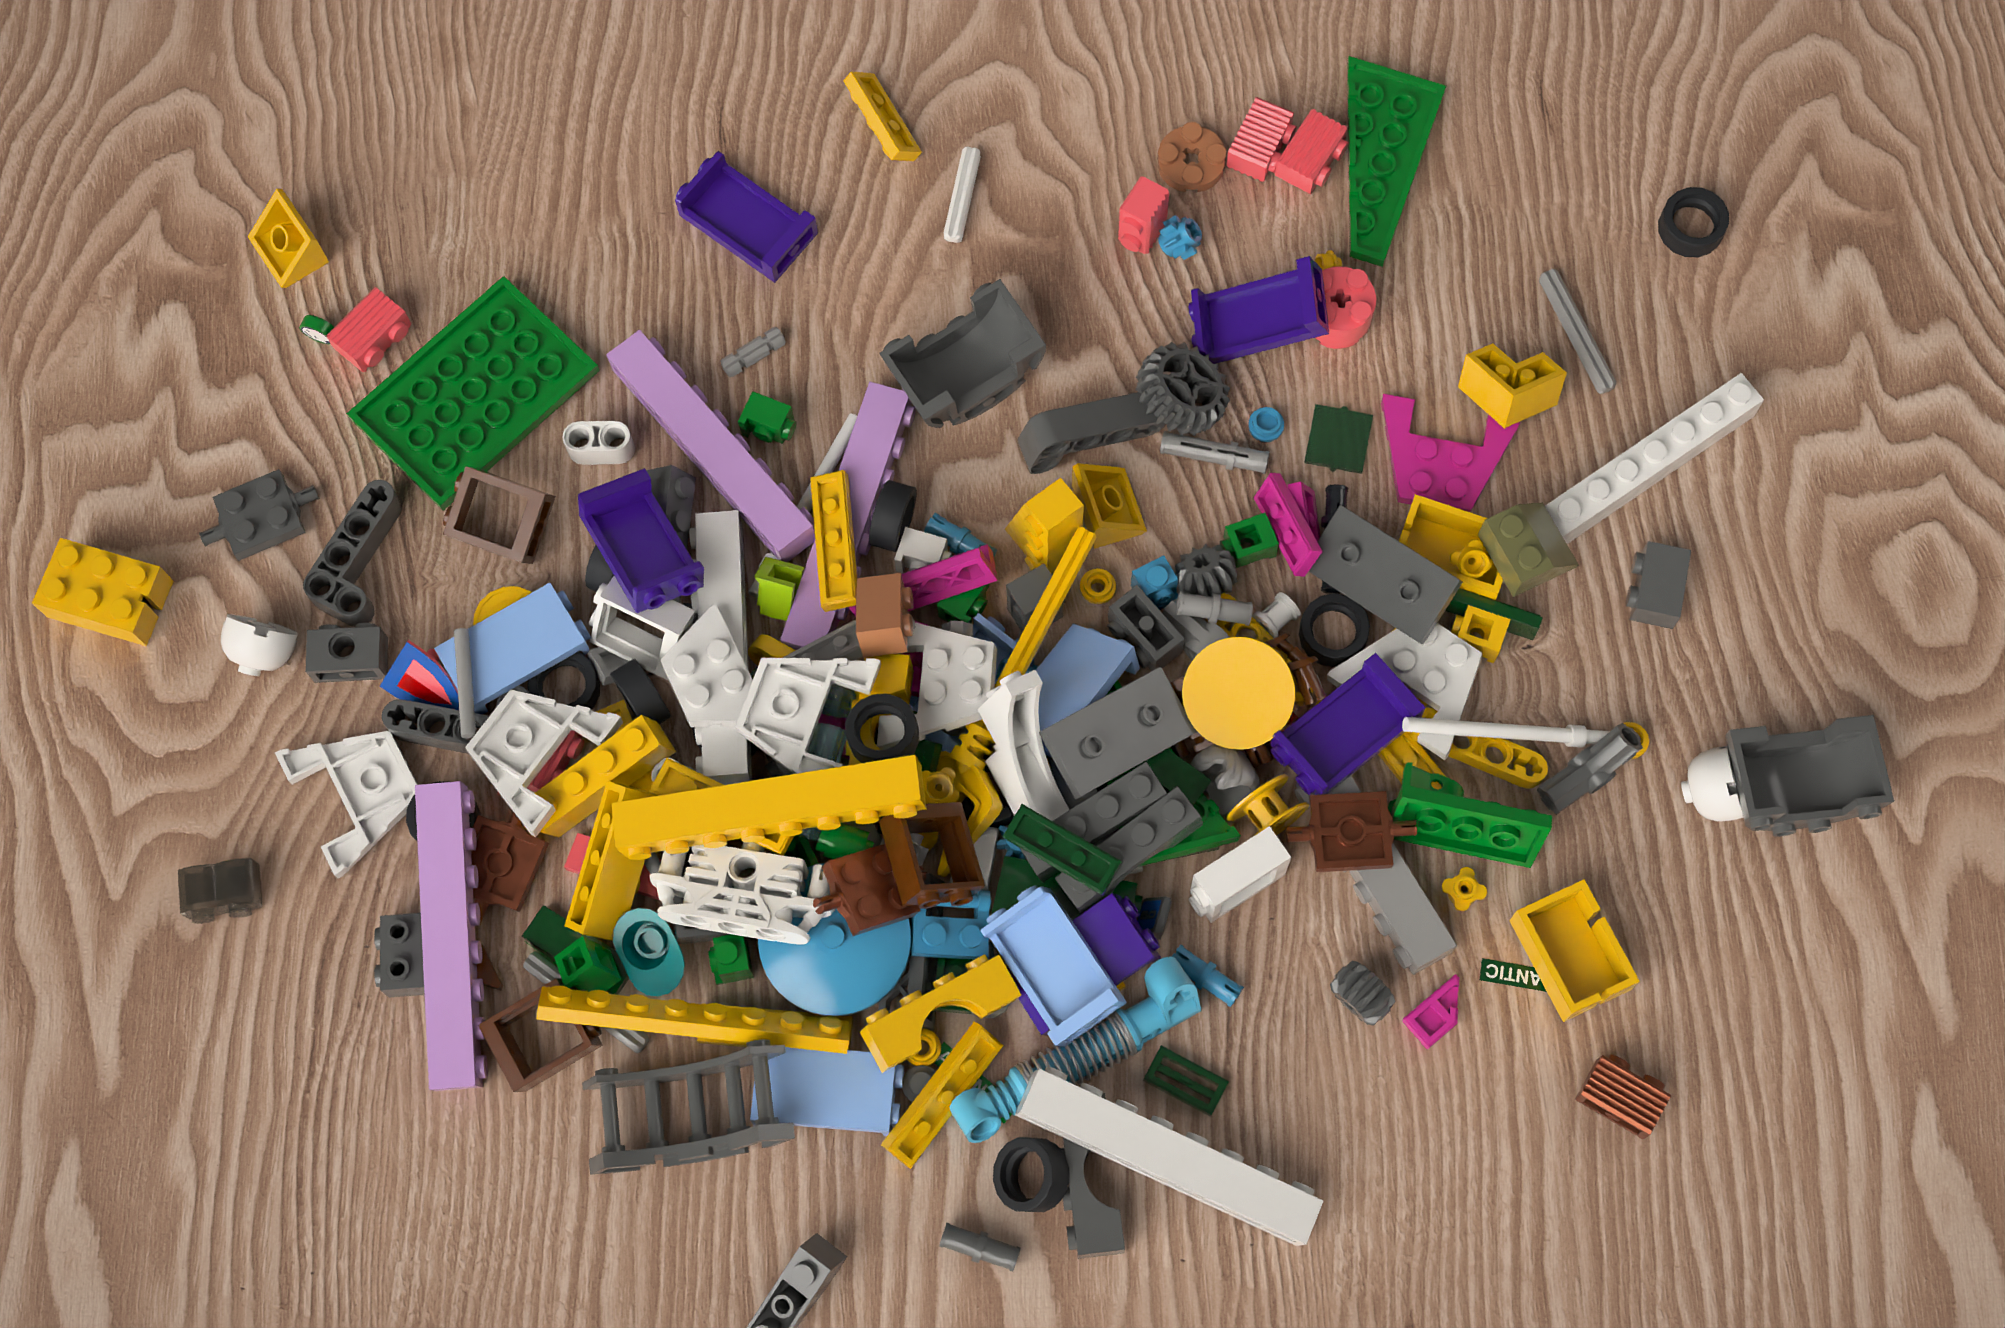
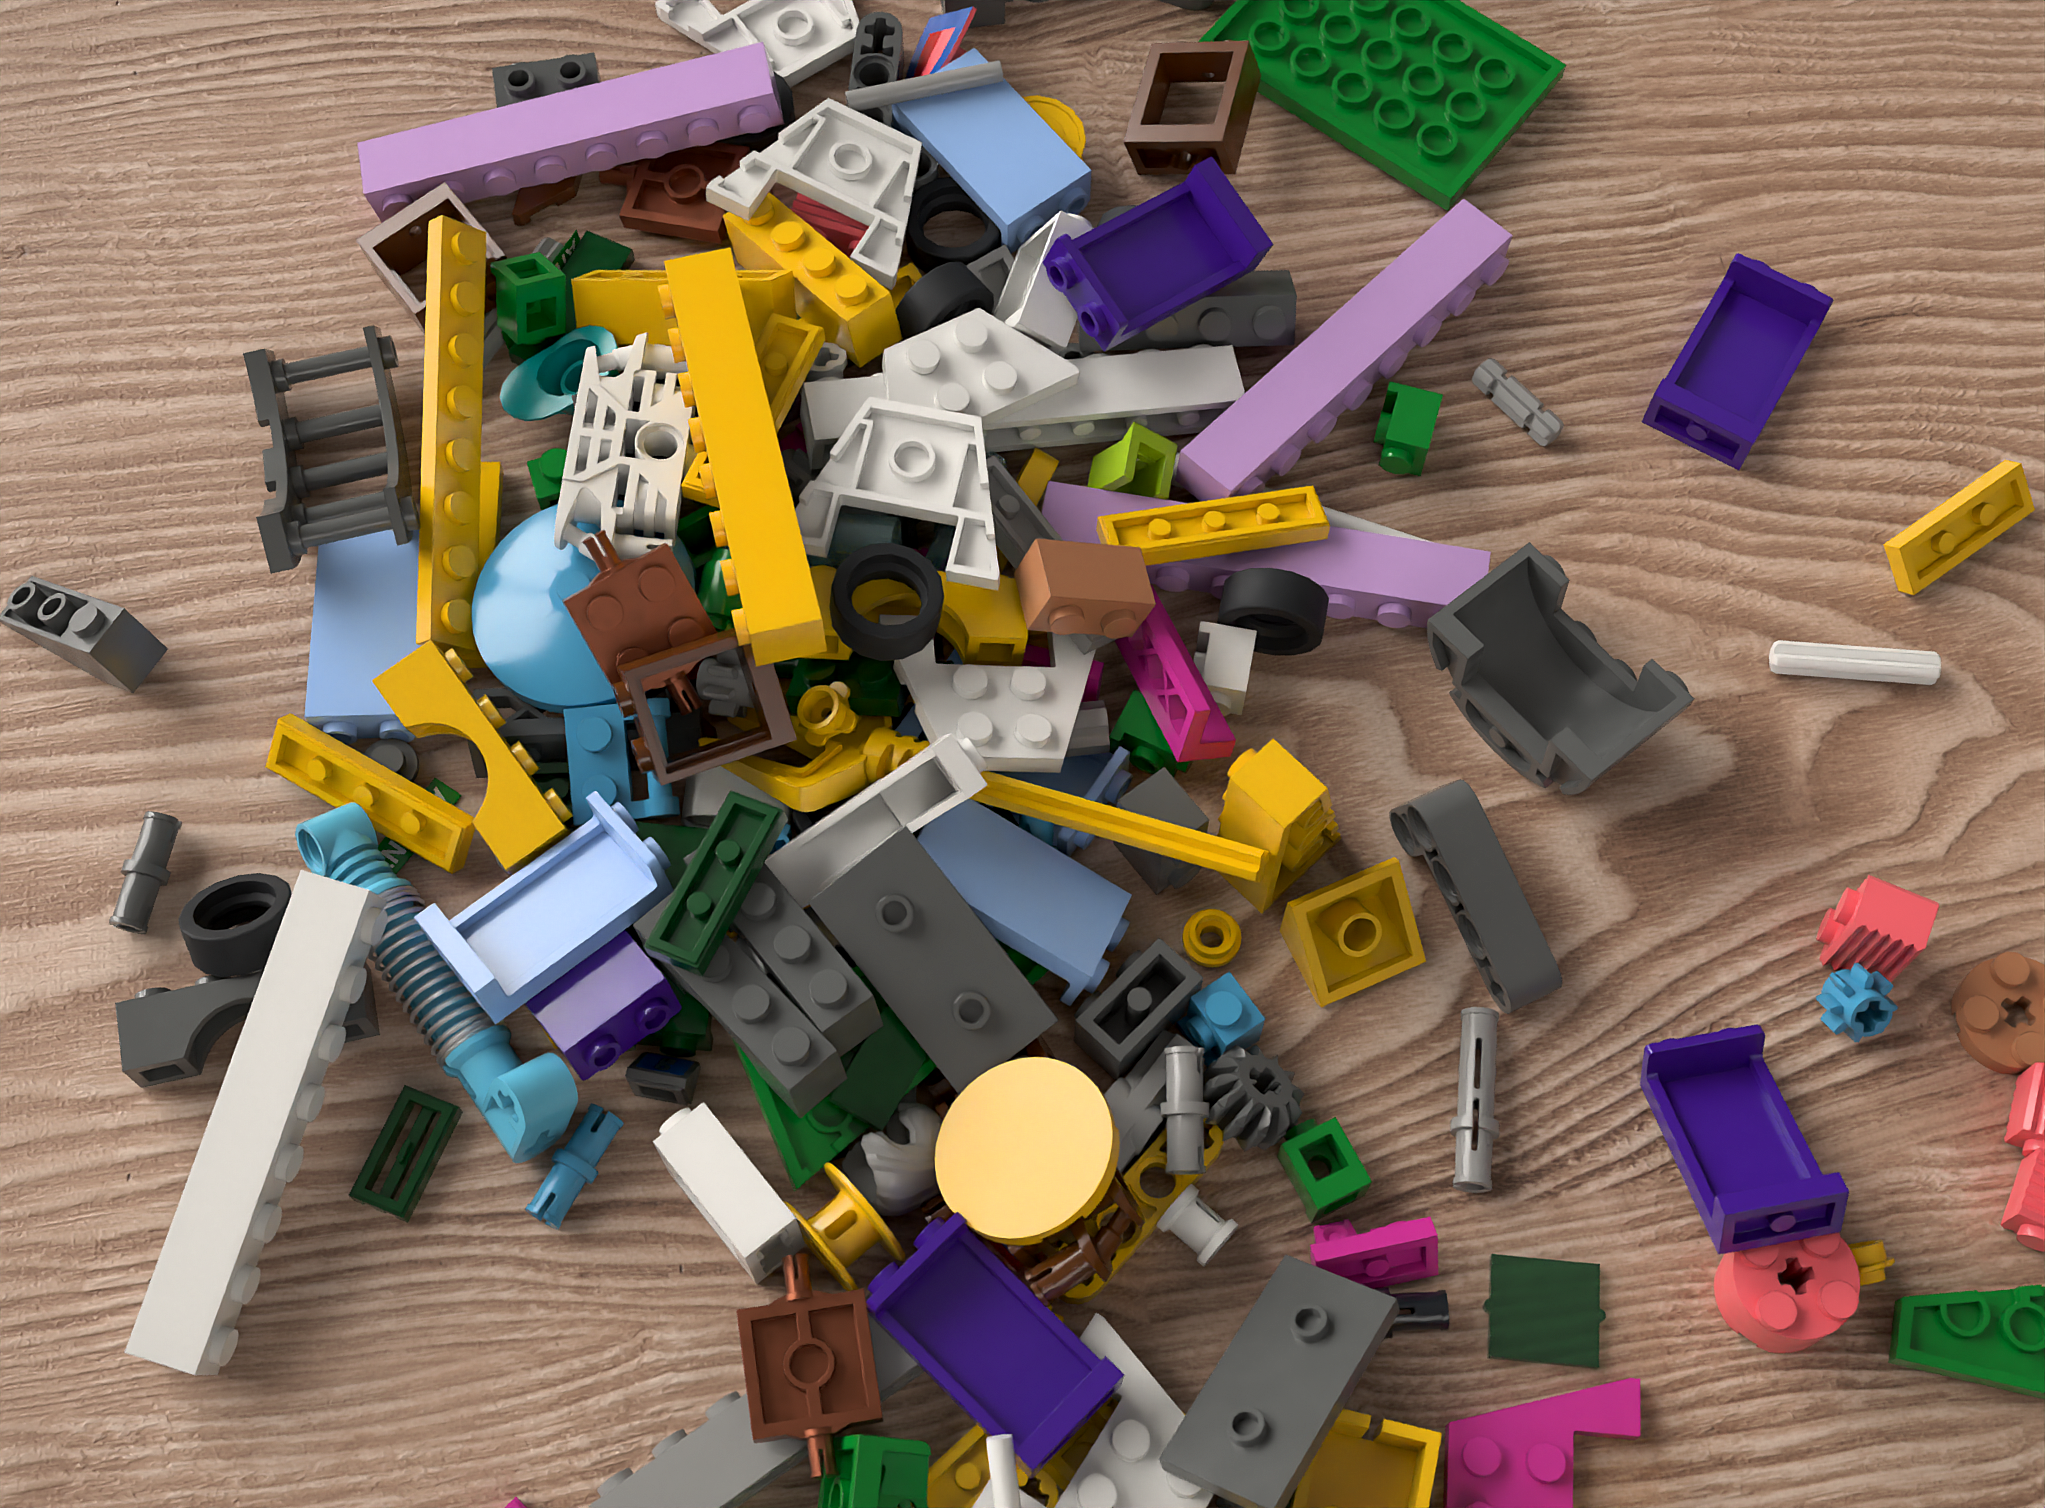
camera: 80 degrees right, 5 degrees down
(599, 436) = (1329, 219): white beam -> none
(934, 1051) = (441, 747): yellow plate -> none
(957, 538) = (1258, 720): dark azure pin -> none
(1190, 382) = (1585, 1071): dark grey gear -> none
(1266, 424) = (1544, 1182): dark azure plate -> none
(1288, 524) = (1355, 1221): dark pink tile -> none
(1336, 603) = (1152, 1289): black tyre -> none
(1362, 993) = (544, 1416): dark grey gear -> none

